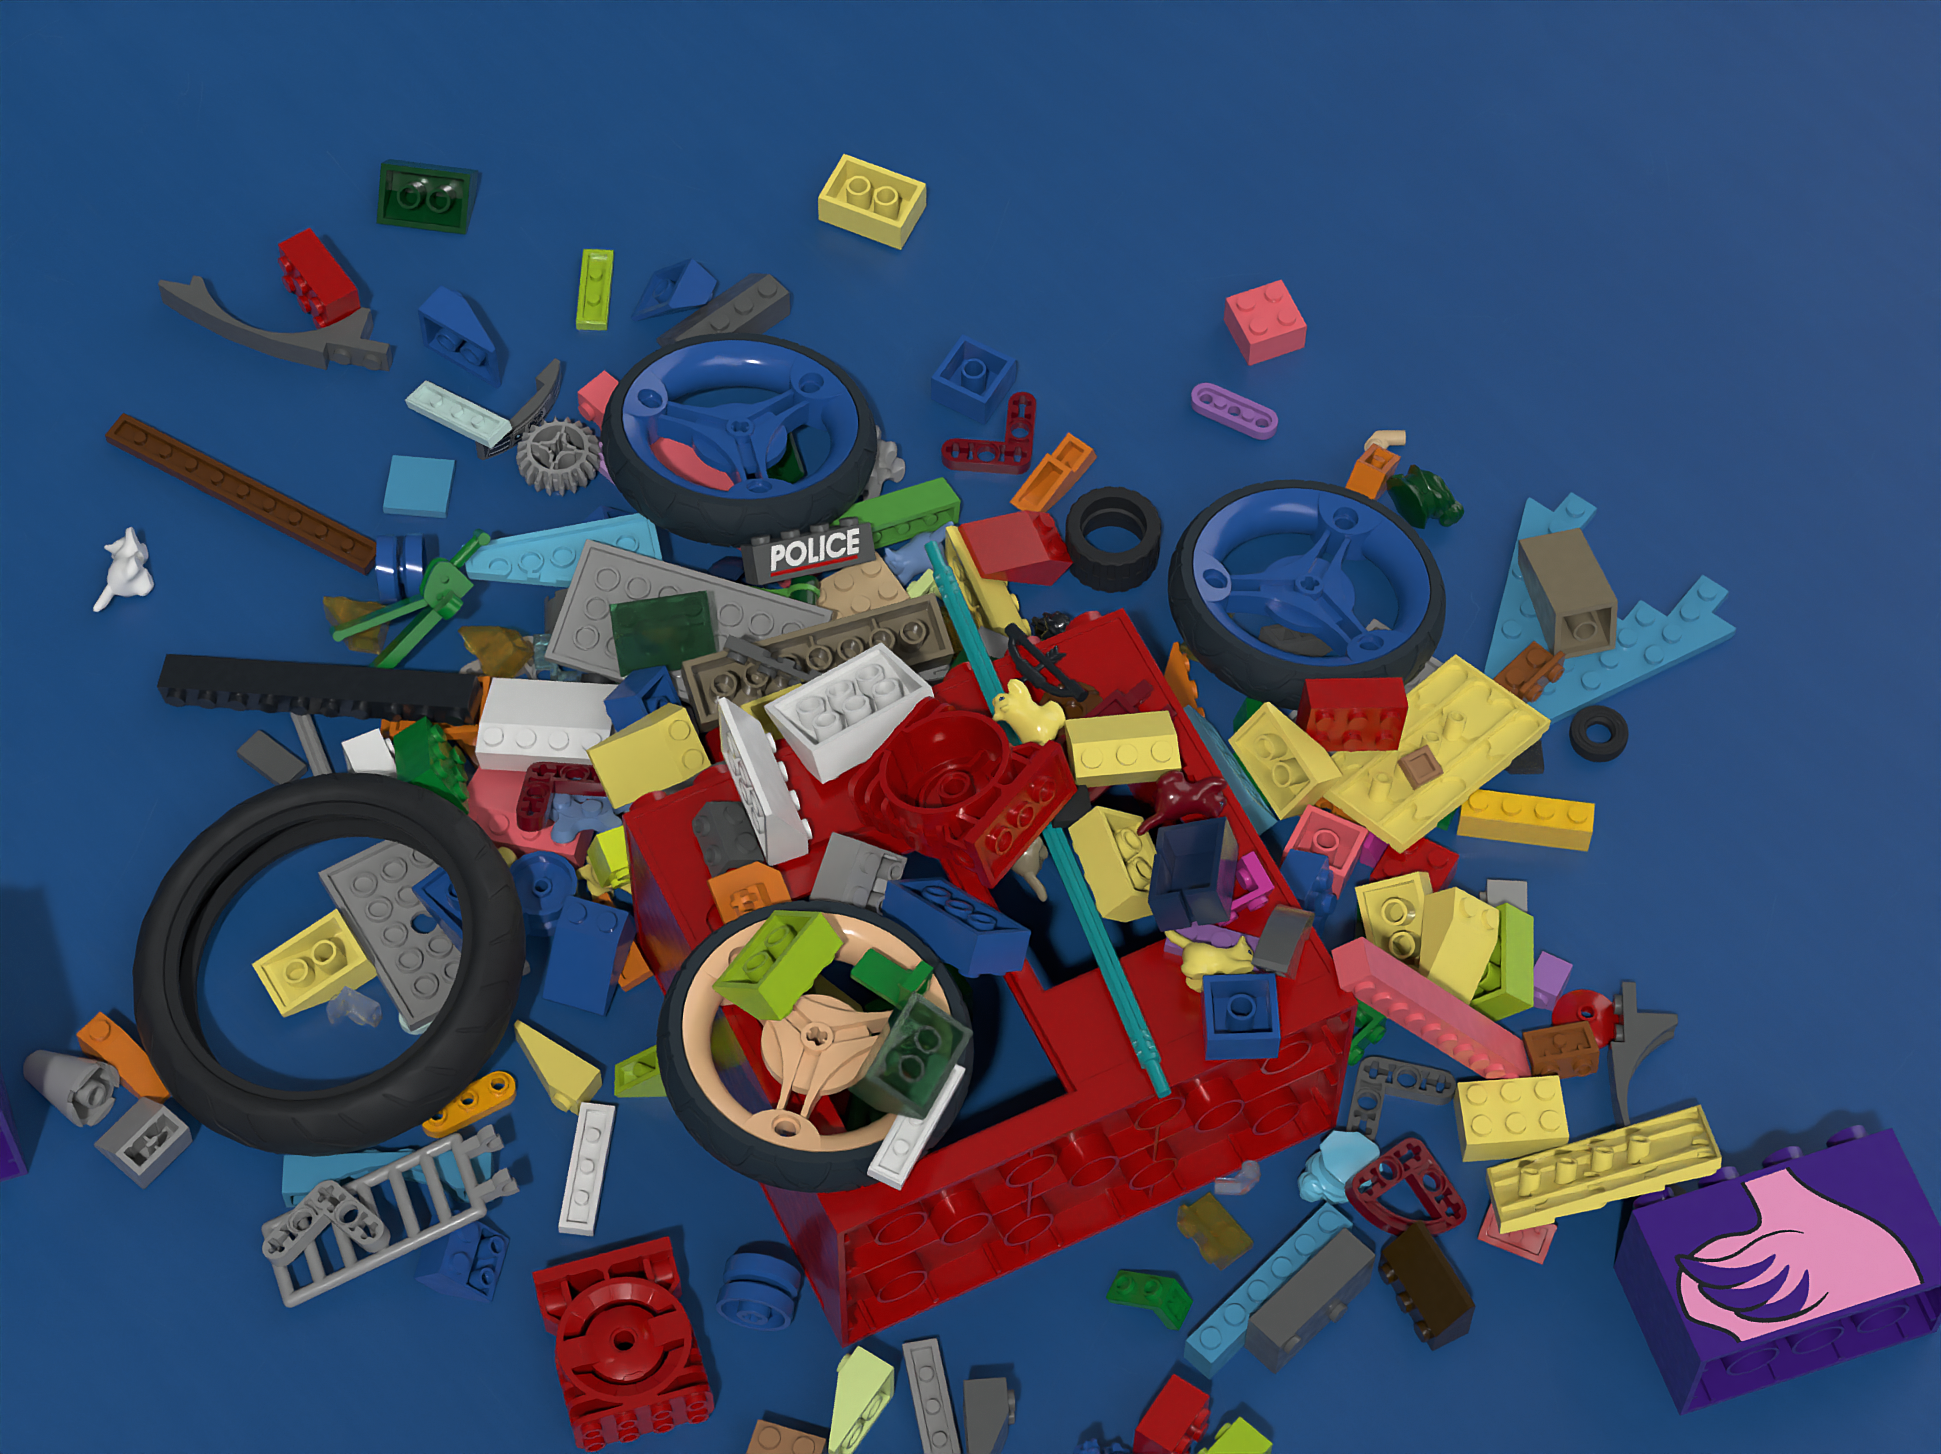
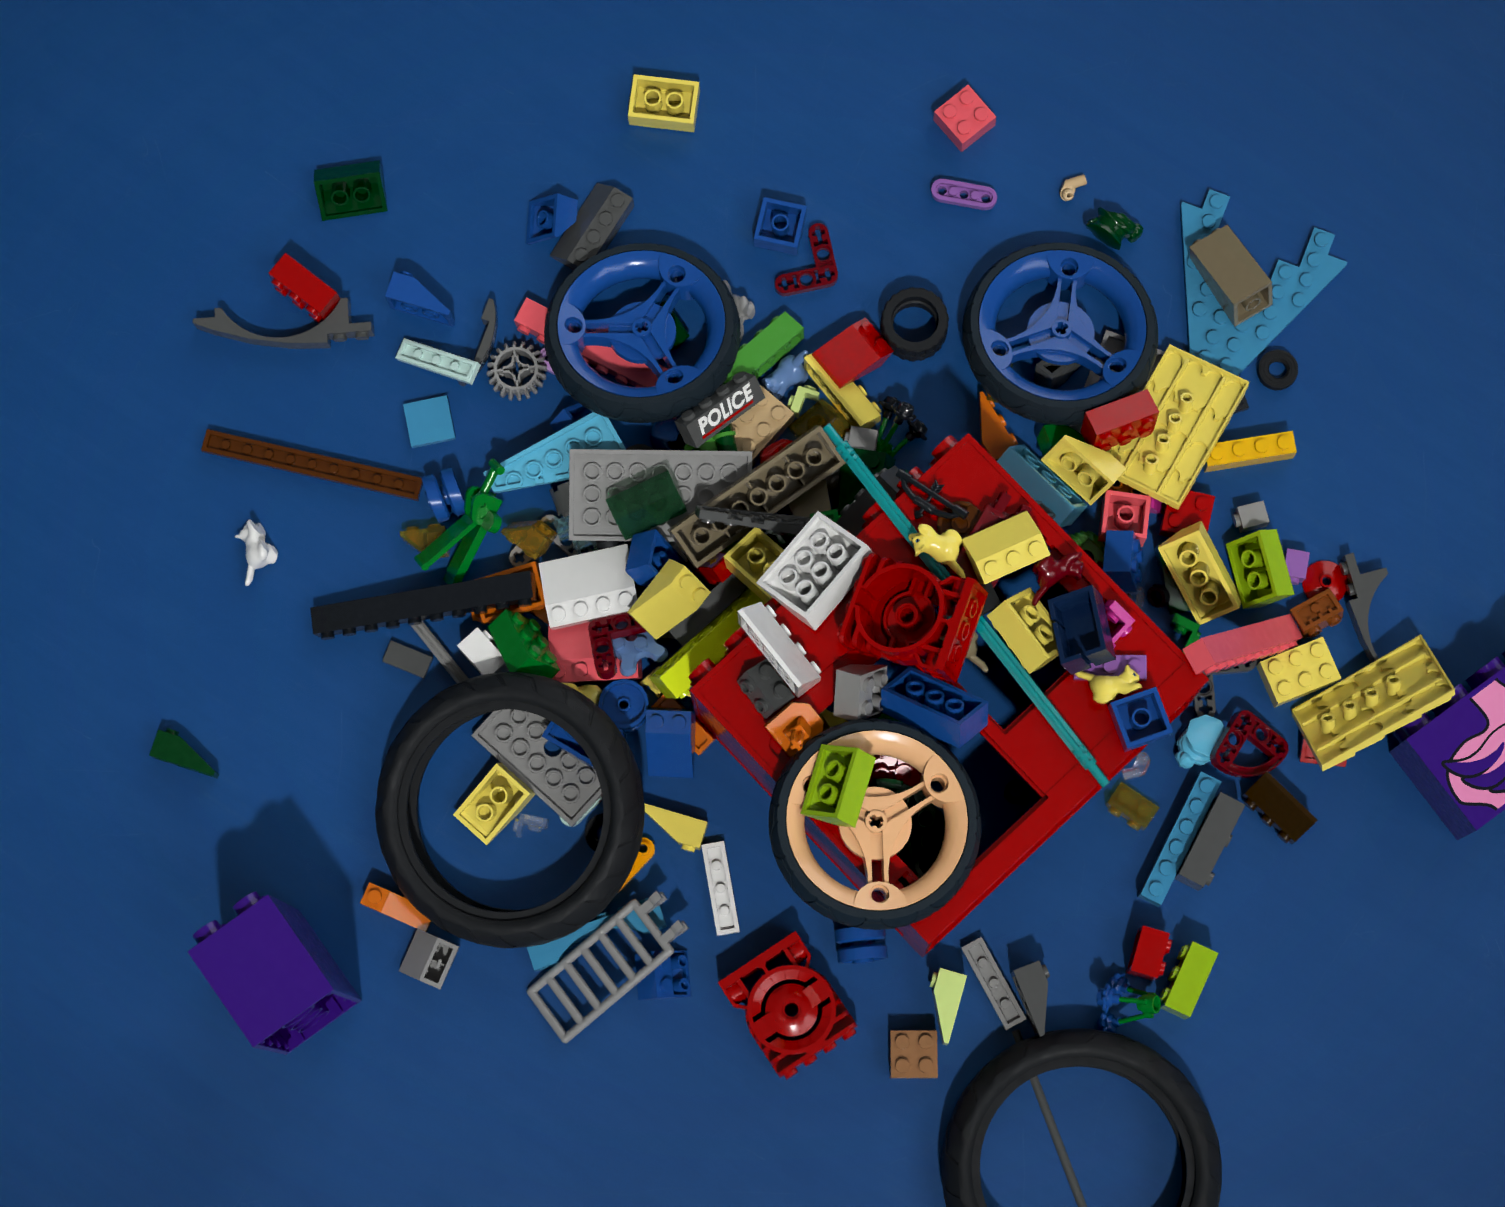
camera: 10 degrees left, 20 degrees up
(73, 1084) = (368, 935): light grey cone -> none
(322, 1214) = (566, 977): light grey beam -> none
(595, 289) = (493, 228): lime tile -> none
(639, 1076) = (739, 810): lime slope -> none
(889, 979) = (913, 770): green bracket -> none
(909, 1136) = (961, 865): white tile -> none
(911, 1058) = (946, 827): clear green slope -> none
(1054, 475) = (857, 285): orange slope -> none
(1154, 1293) = (1105, 865): green bracket -> none
(1283, 941) = (1155, 662): dark grey slope -> none
(1373, 471) = (1074, 221): orange brick -> none
(1420, 767) = (1174, 445): medium nougat tile -> none
(1457, 941) = (1235, 571): light yellow slope -> none
(1531, 672) = (1221, 343): dark orange bracket -> none

